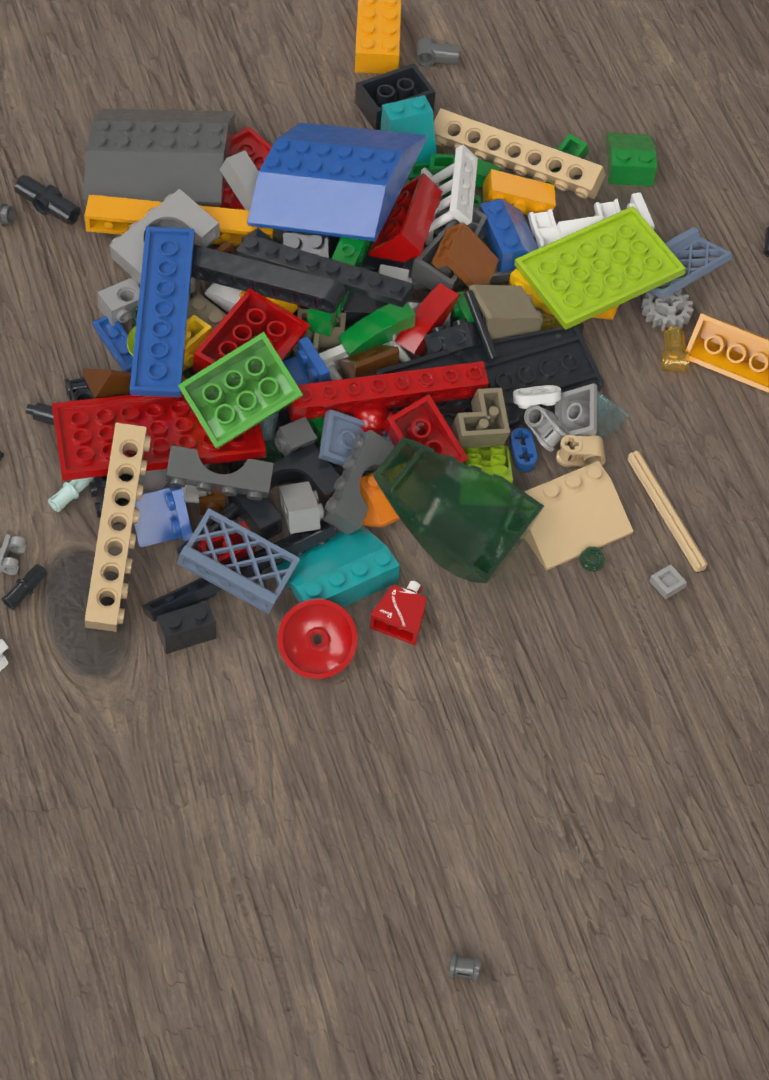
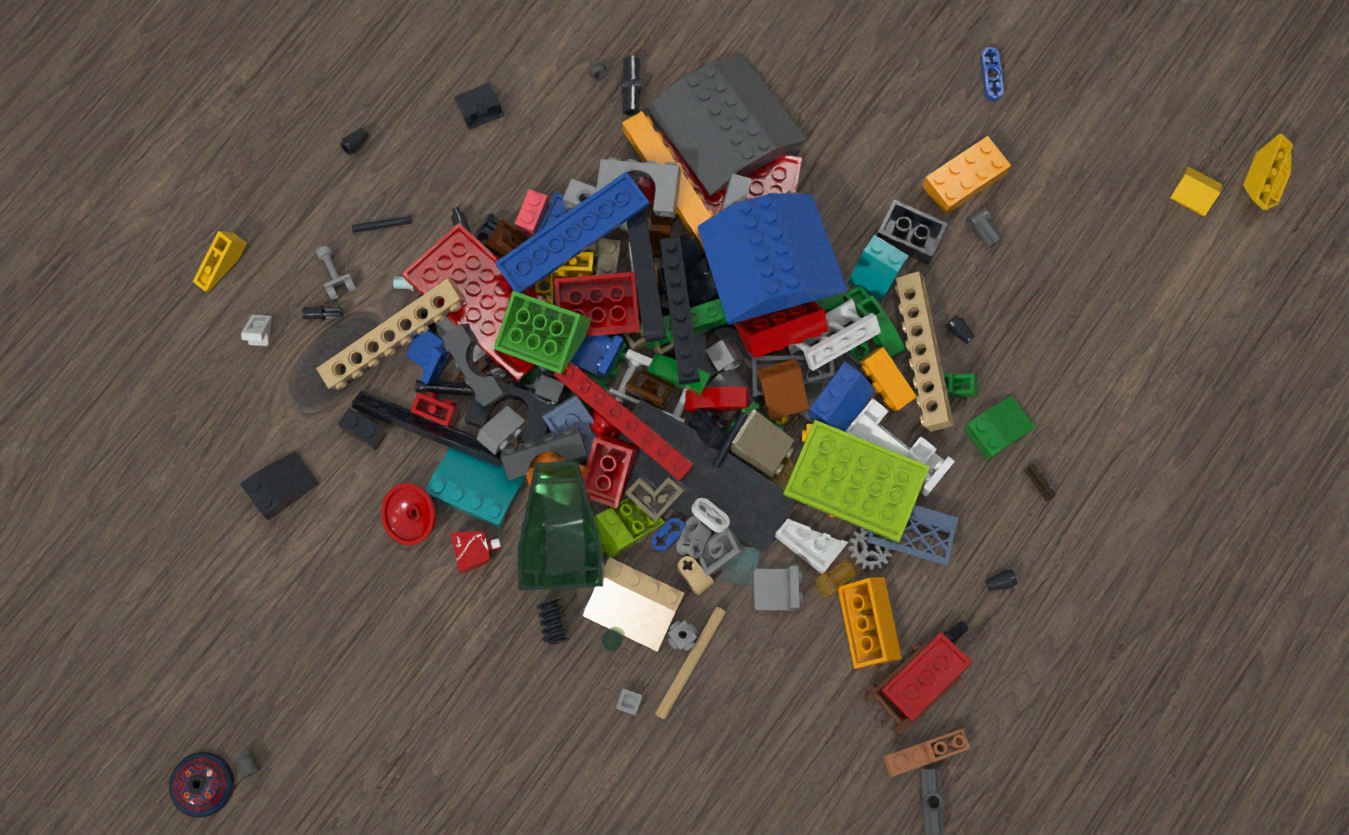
camera: 55 degrees right, 20 degrees up
(97, 347) = (531, 213): none -> coral brick
(176, 745) = (279, 485): none -> black slope
(231, 580) = (406, 430): sand blue fence -> none
(446, 1051) = (215, 787): none -> dish
(516, 124) = (960, 329): none -> black cone
(536, 591) = (552, 622): none -> black piece
(629, 349) = (810, 545): none -> white wing
(637, 496) = (682, 644): none -> light grey brick
(651, 394) = (777, 589): none -> light grey bracket
(704, 162) = (1039, 482): none -> dark brown axle

